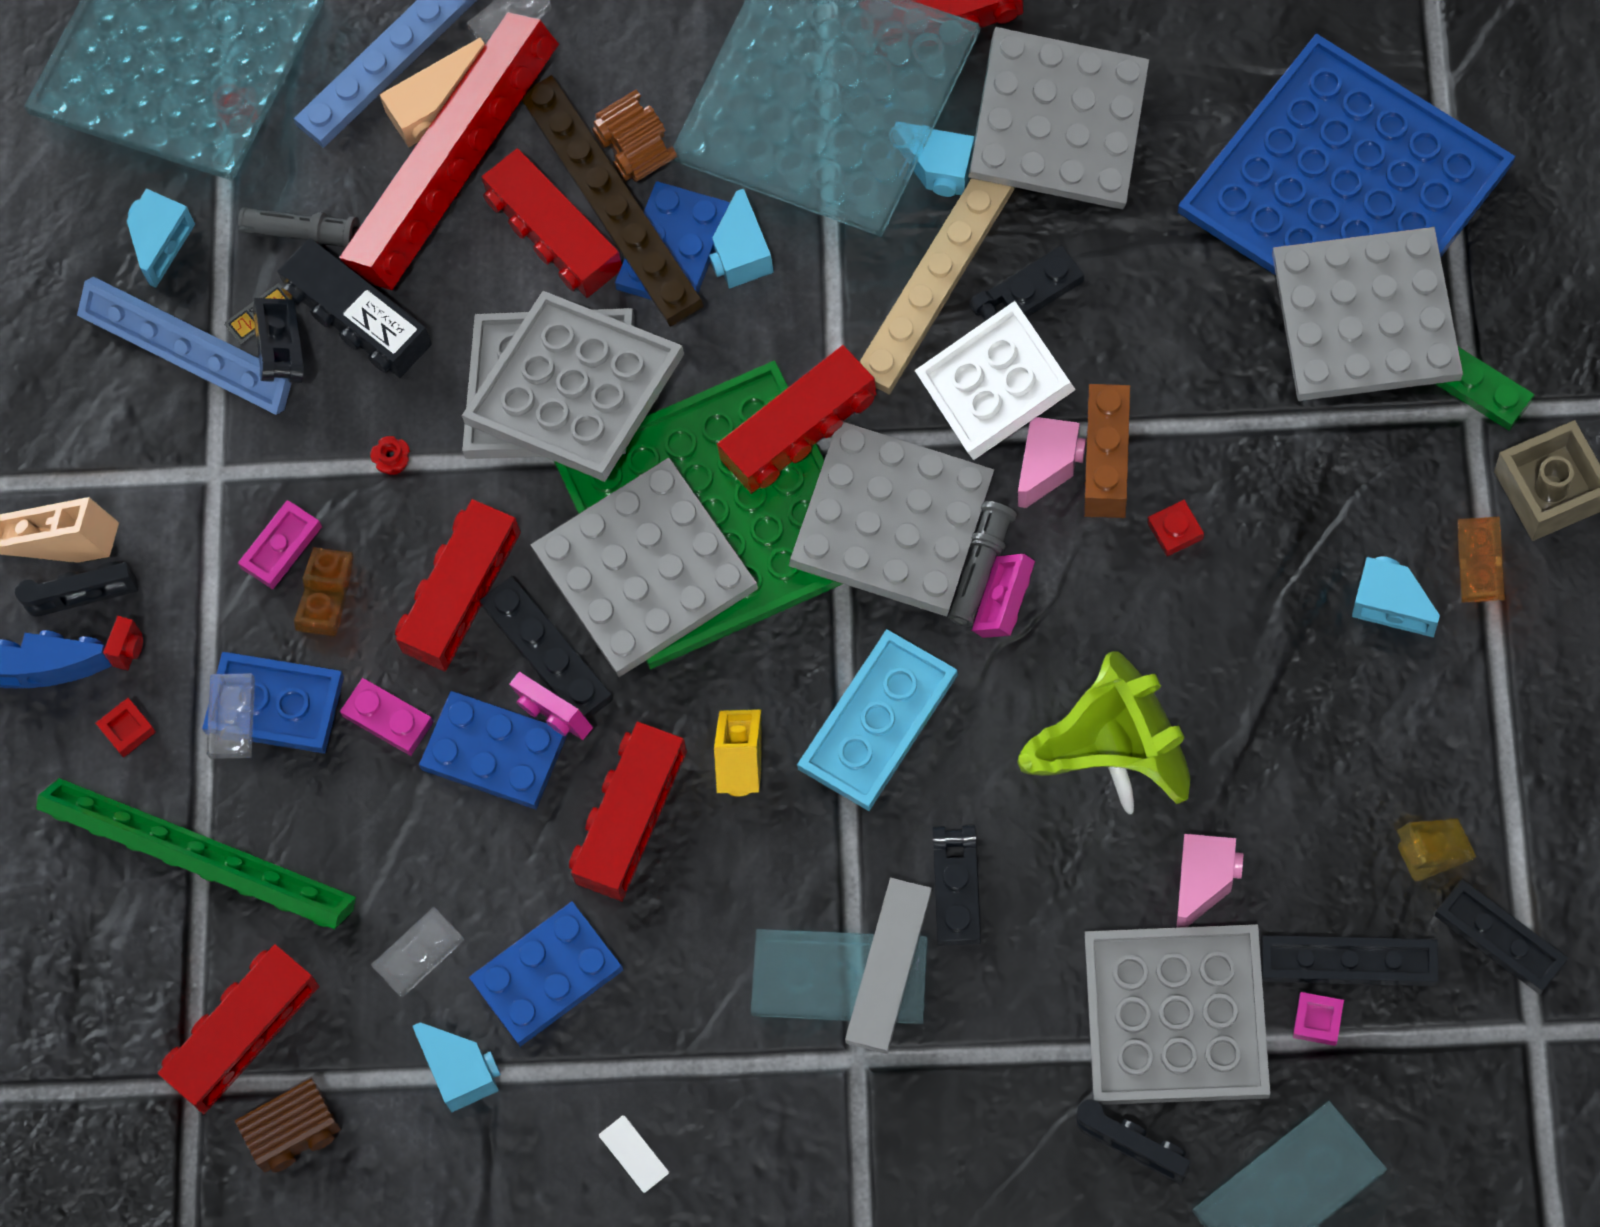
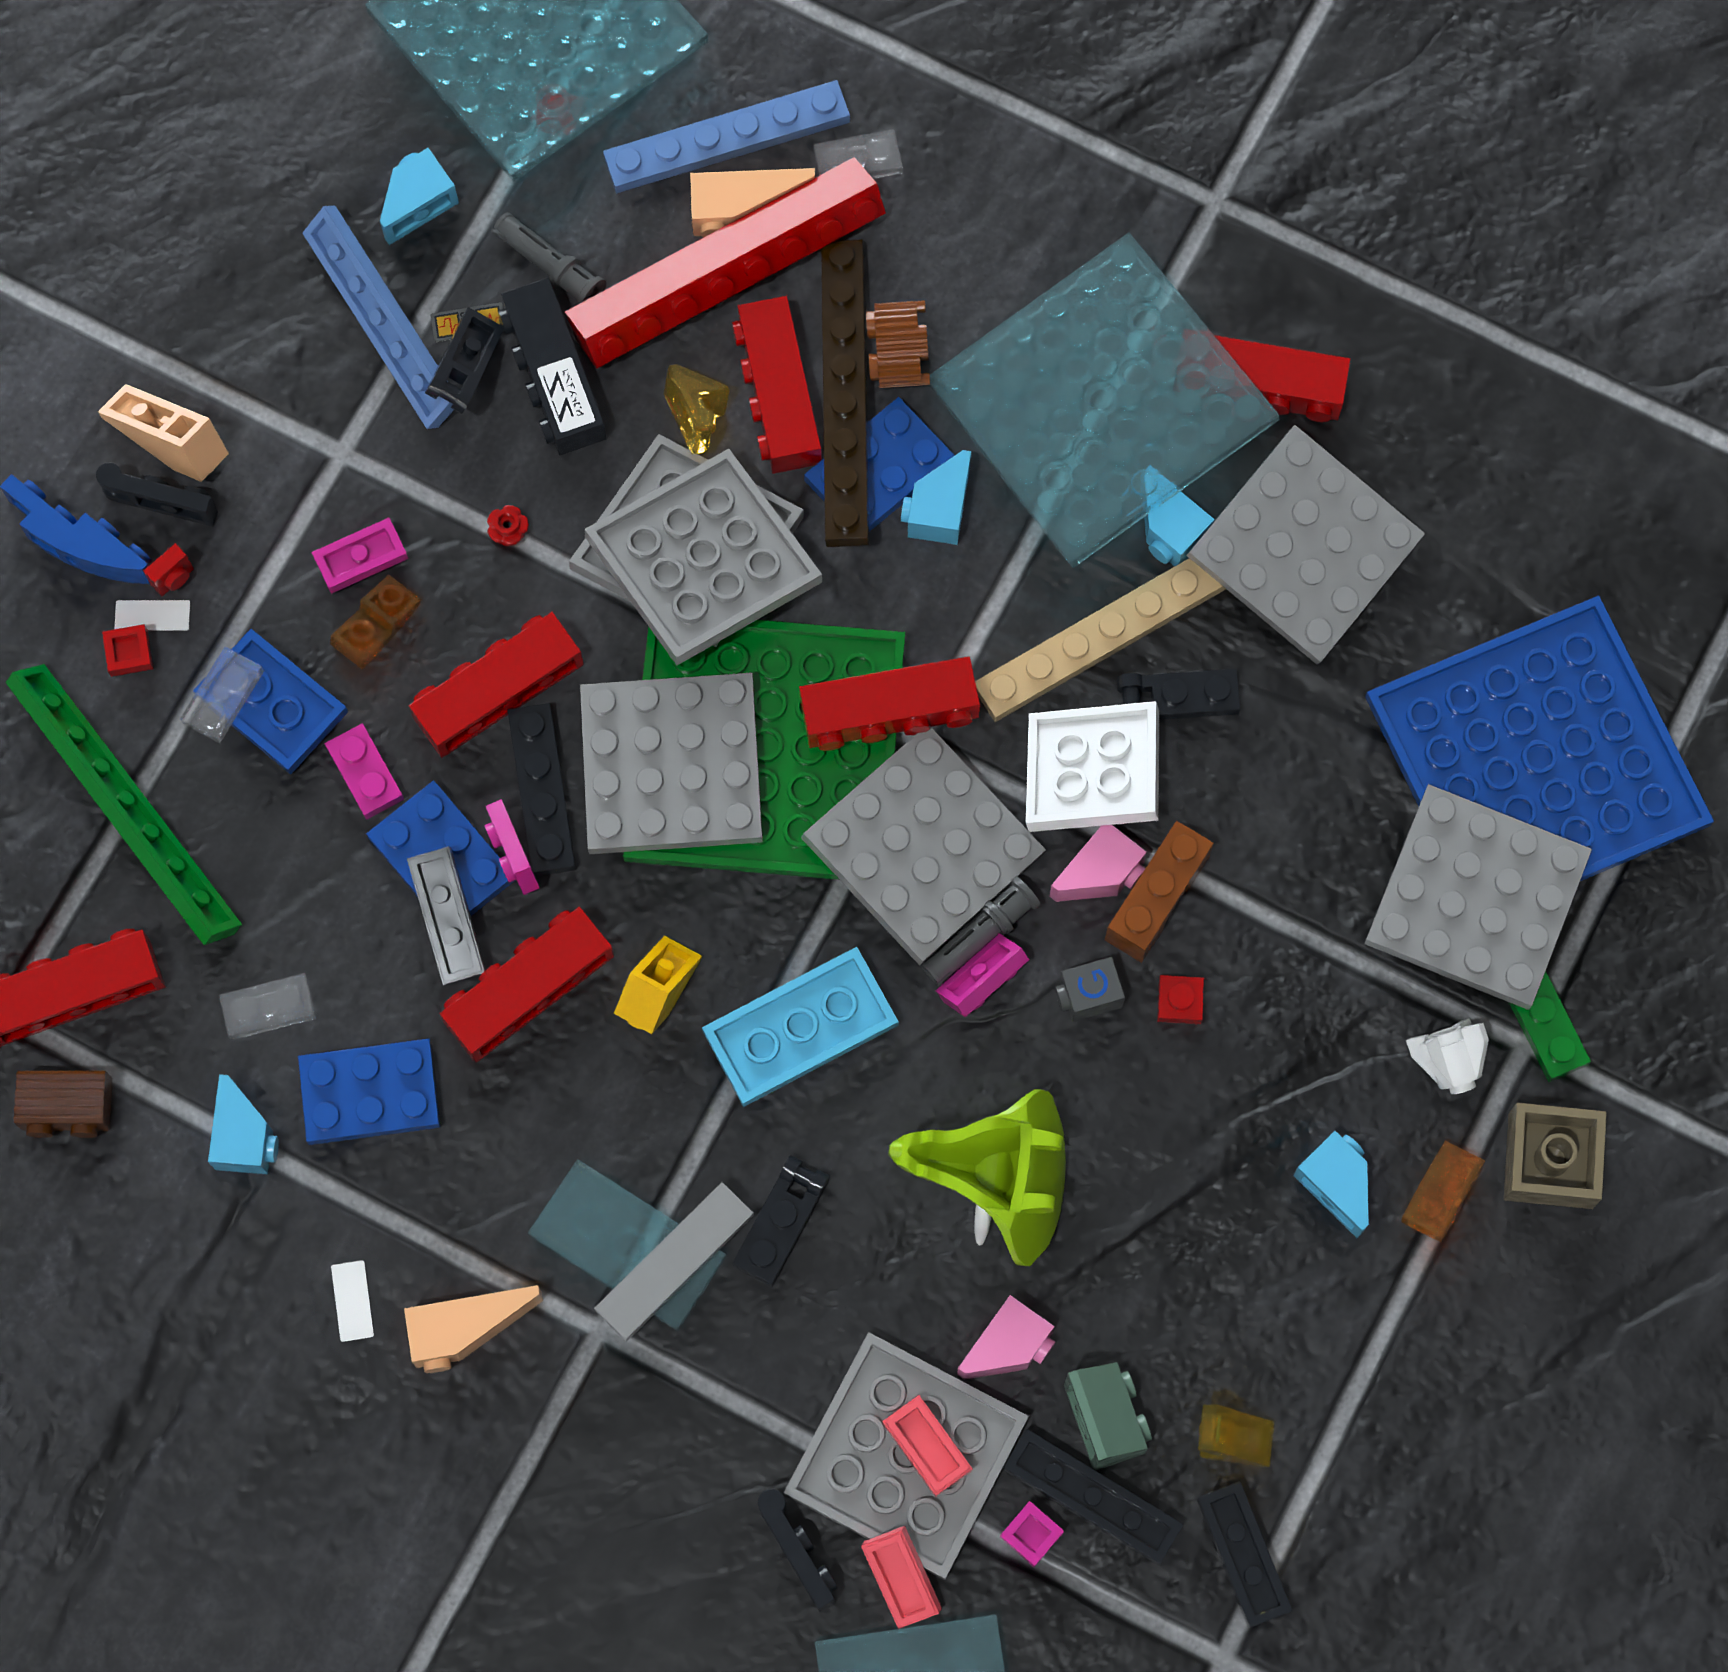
camera: 20 degrees right, 5 degrees up
(132, 686) = (155, 614): none -> white sticker
(491, 275) = (695, 405): none -> clear yellow slope
(528, 791) = (446, 915): none -> tile
(737, 1122) = (458, 1327): none -> light nougat slope
(1099, 558) = (1090, 990): none -> dark grey brick
(1190, 994) = (927, 1446): none -> coral tile
(1233, 1113) = (901, 1577): none -> coral tile
(1320, 887) = (1106, 1415): none -> sand green slope
(1423, 448) = (1452, 1055): none -> white brick

